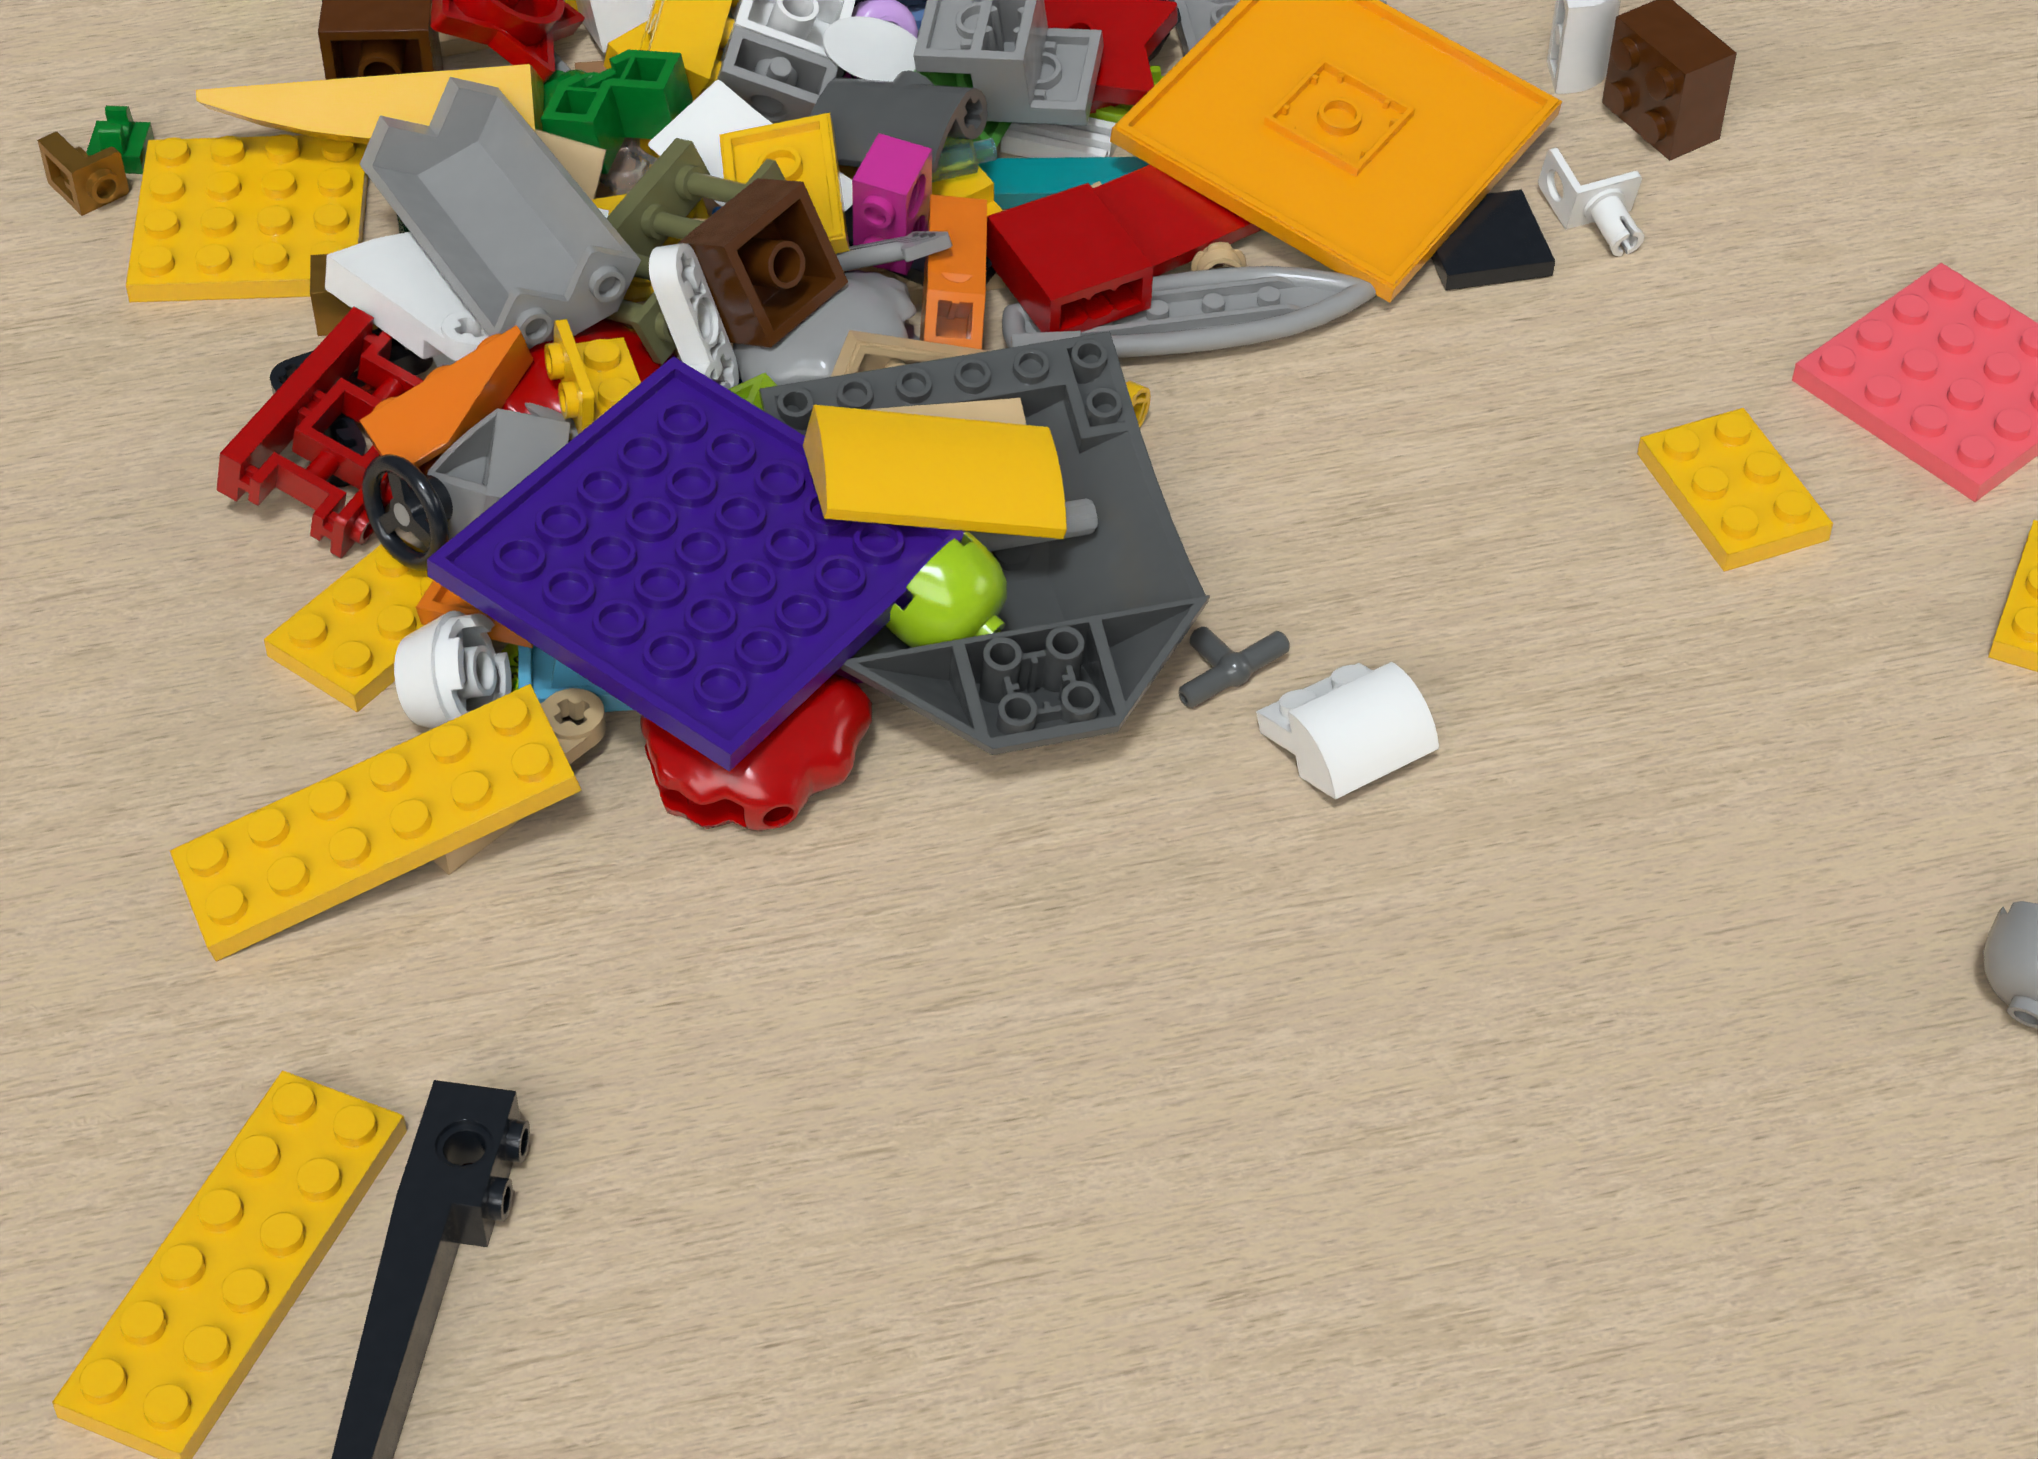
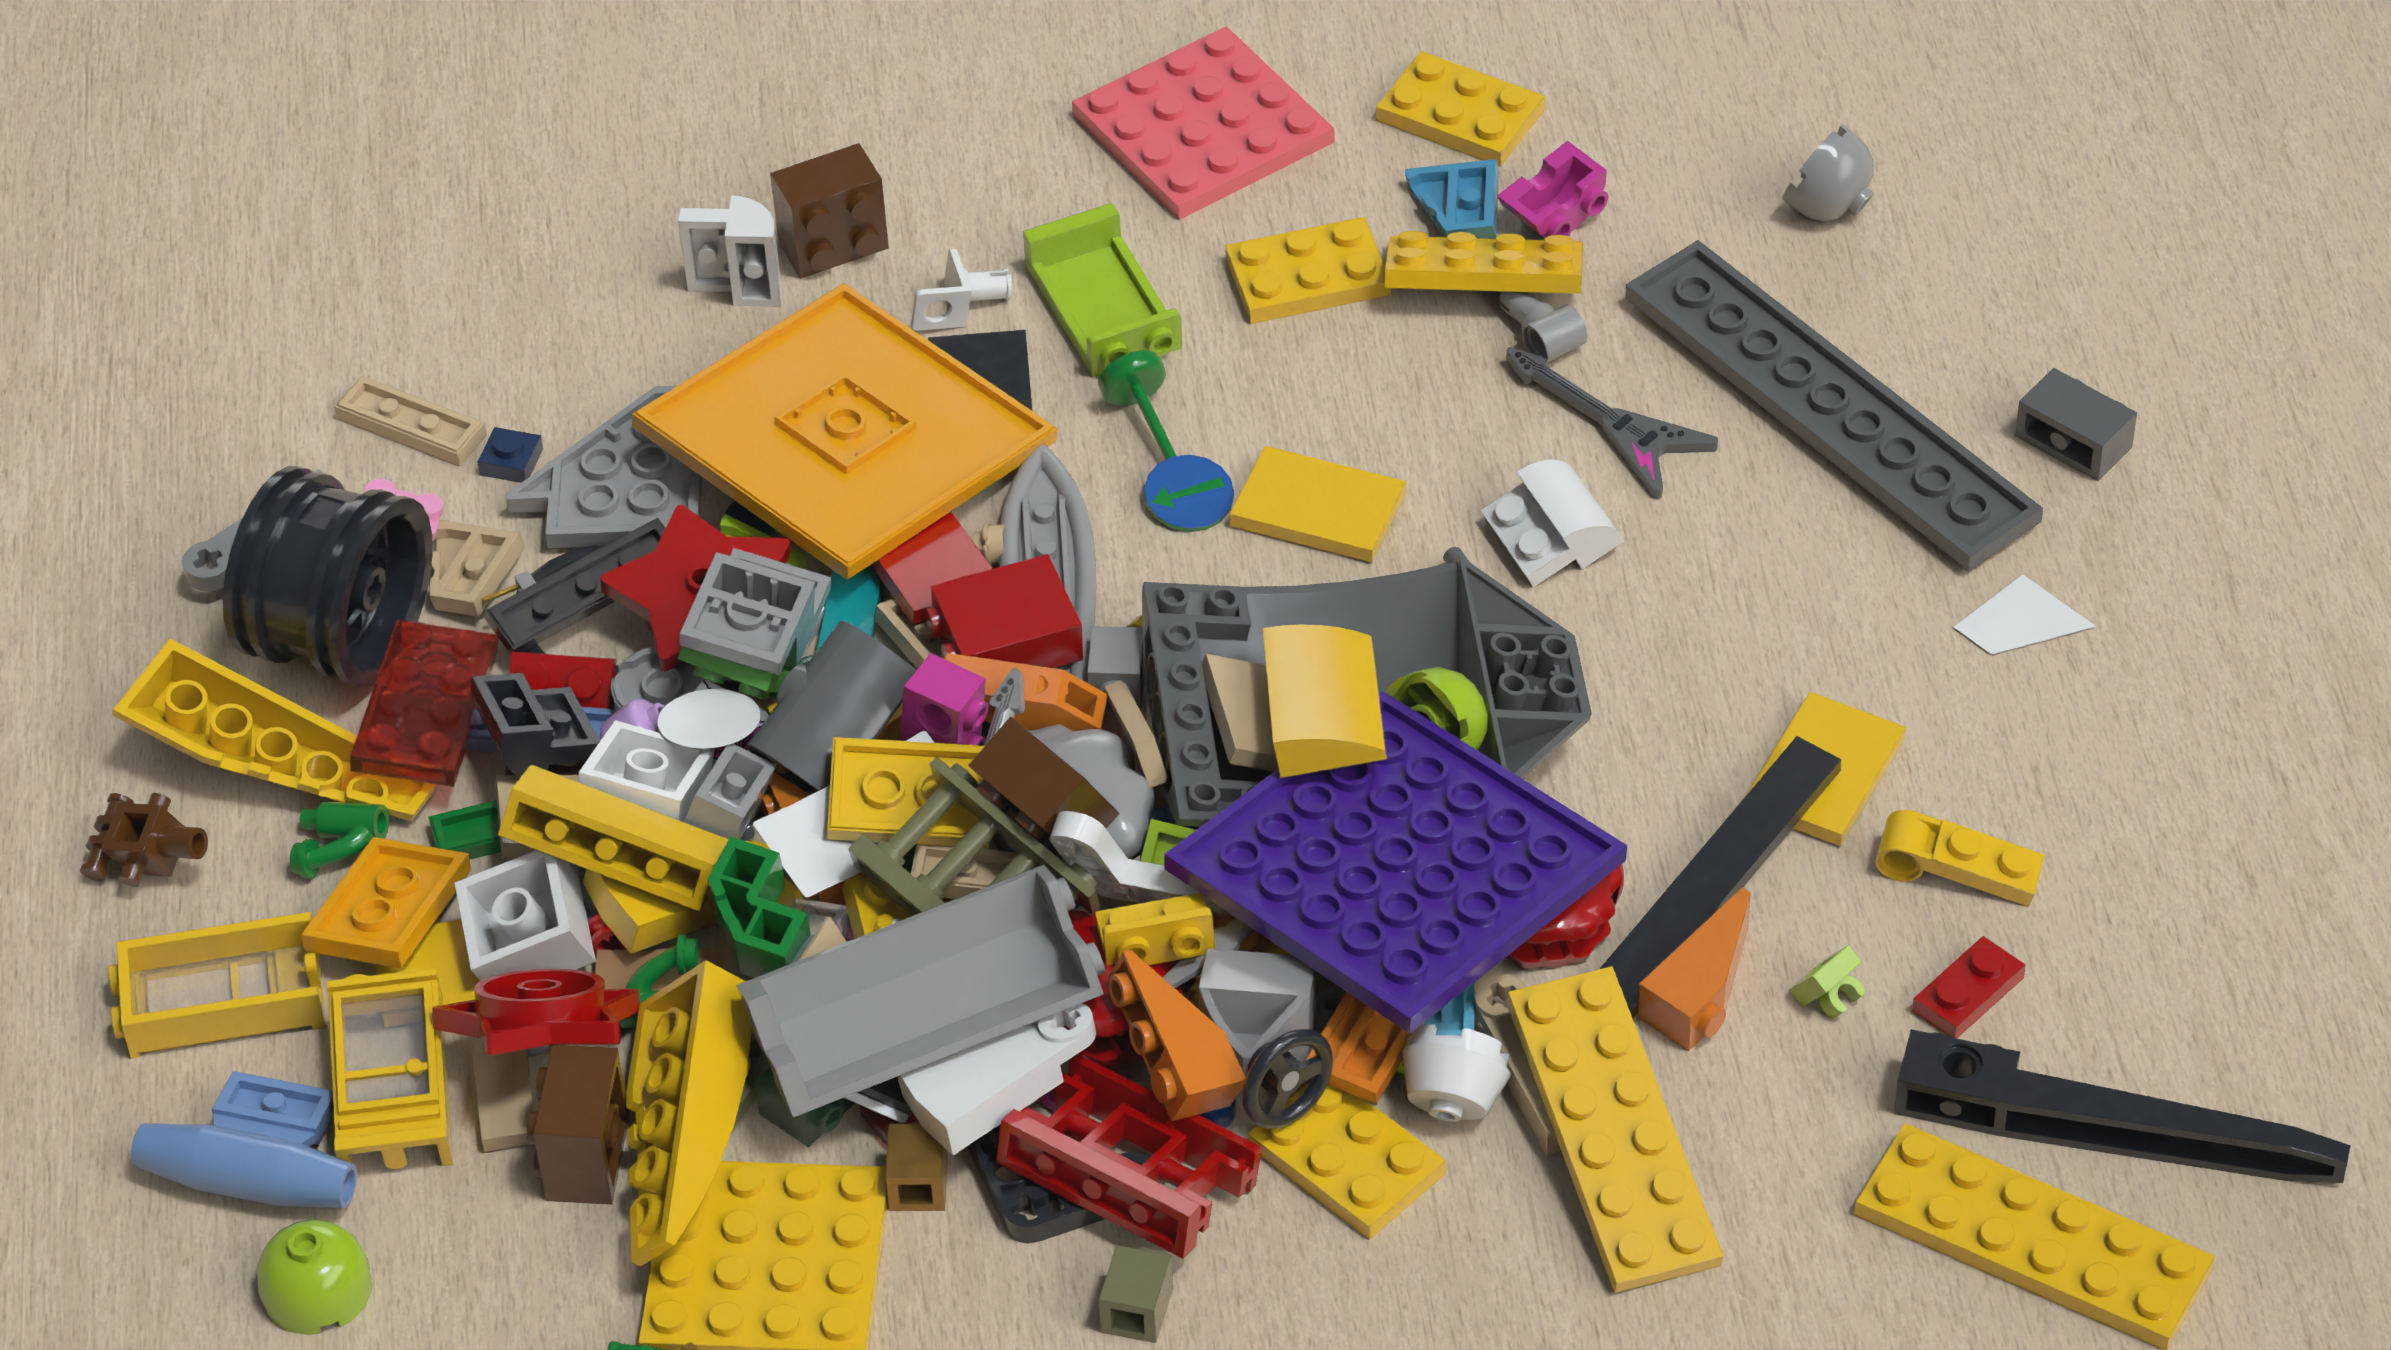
camera: 80 degrees left, 0 degrees up
(177, 463) = (1136, 1293): none -> olive brick
(626, 1027) = (1827, 979): none -> lime tile
(628, 905) = (1693, 984): none -> orange slope
(634, 1185) = (1968, 988): none -> red plate
(768, 903) = (1725, 862): none -> black tile
(838, 1163) = (1923, 843): none -> yellow plate
(988, 1022) = (1865, 749): none -> yellow tile
(1297, 1235) = (2020, 617): none -> white sticker
(1345, 526) = (1318, 503): none -> yellow tile
(1352, 416) = (1182, 490): none -> piece
(1534, 807) = (1634, 436): none -> dark grey piece
(1623, 1007) = (1834, 405): none -> dark grey plate
(1637, 317) = (1099, 289): none -> lime panel
(1657, 1274) = (2075, 424): none -> dark grey brick
(1690, 705) = (1545, 329): none -> light grey pin
(1774, 633) = (1484, 264): none -> yellow plate
(1893, 610) = (1458, 196): none -> dark azure wing
(1914, 692) = (1560, 194): none -> dark pink cylinder

